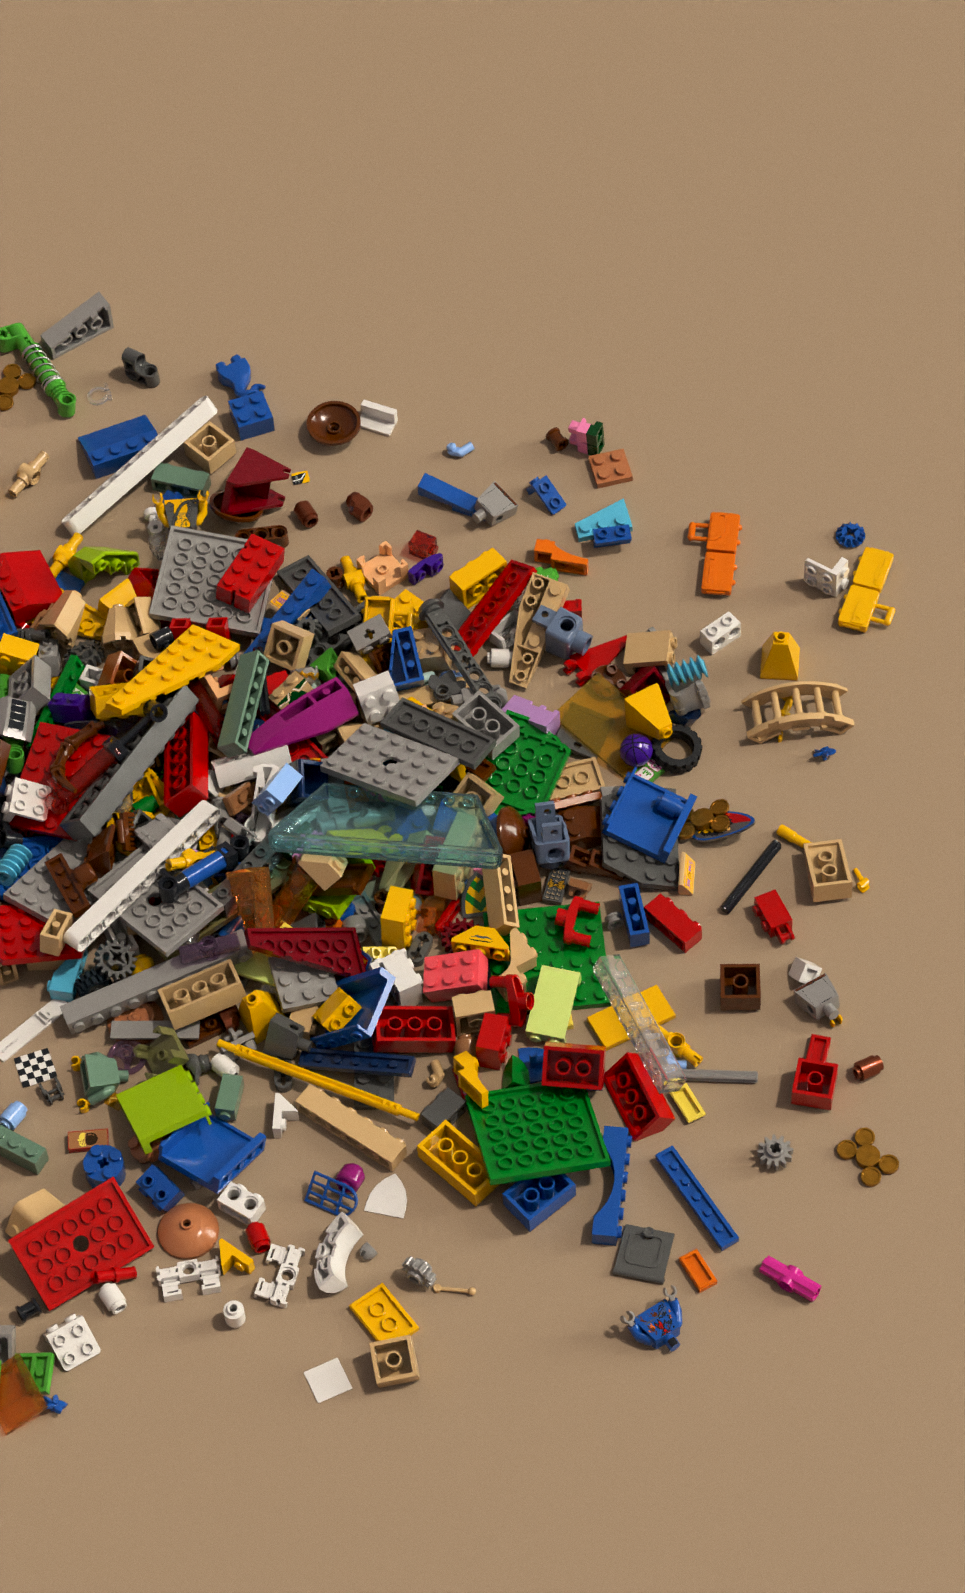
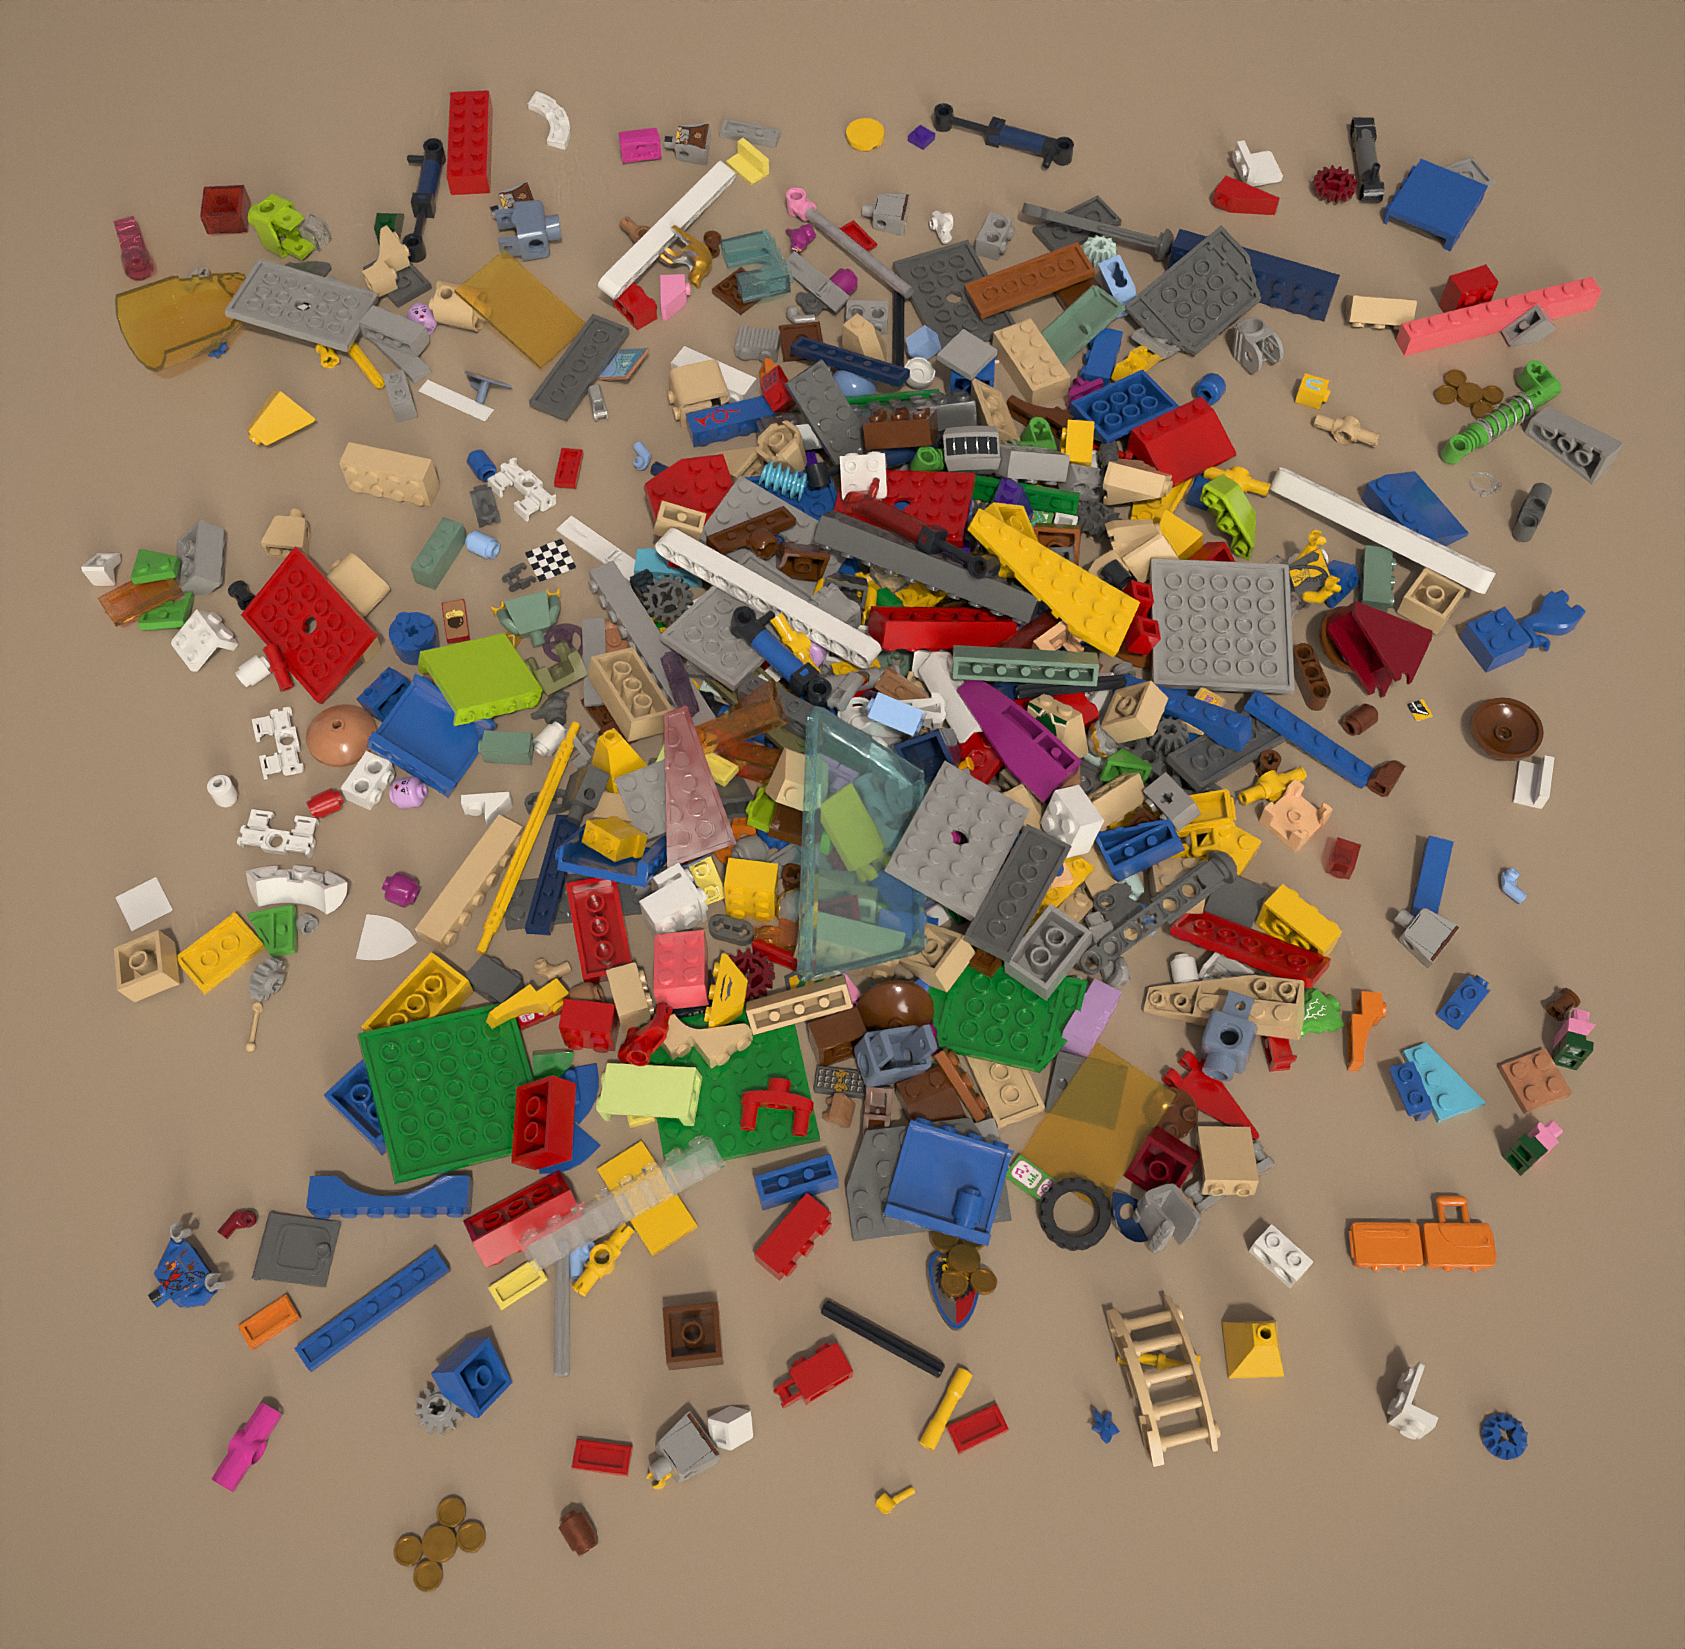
camera: 80 degrees right, 5 degrees up
(55, 1404) = (128, 636): blue plant -> none
(67, 748) = (929, 496): reddish brown animal -> none
(123, 831) = (829, 570): reddish brown piece -> none
(232, 1256) = (301, 779): yellow slope -> none
(250, 573) = (1235, 656): red piece -> none
(259, 1173) = (408, 792): none -> lavender head
(319, 547) = (1309, 739): none -> blue plate
(323, 1197) = (382, 875): blue window -> none
(370, 1272) = (276, 929): none -> bright green wing
(429, 566) = (1315, 873): dark purple slope -> none
(614, 920) = (790, 1157): light grey bush -> none
(616, 1293) = (237, 1220): none -> dark red arm
(636, 750) = (1056, 1157): dark purple piece -> none
(648, 713) = (1113, 1167): yellow slope -> none
(662, 475) = (1532, 1146): none -> dark green hips
(686, 670) = (1184, 1206): medium azure piece -> none
(686, 875) = (873, 1248): slope -> none
(754, 1126) = (472, 1376): none -> blue slope
(814, 1083) = (542, 1454): red brick -> none
(817, 825) = (977, 1428): none -> red tile
(827, 870) = (897, 1445): tan slope -> none
(865, 591) = (1388, 1464): yellow piece -> none

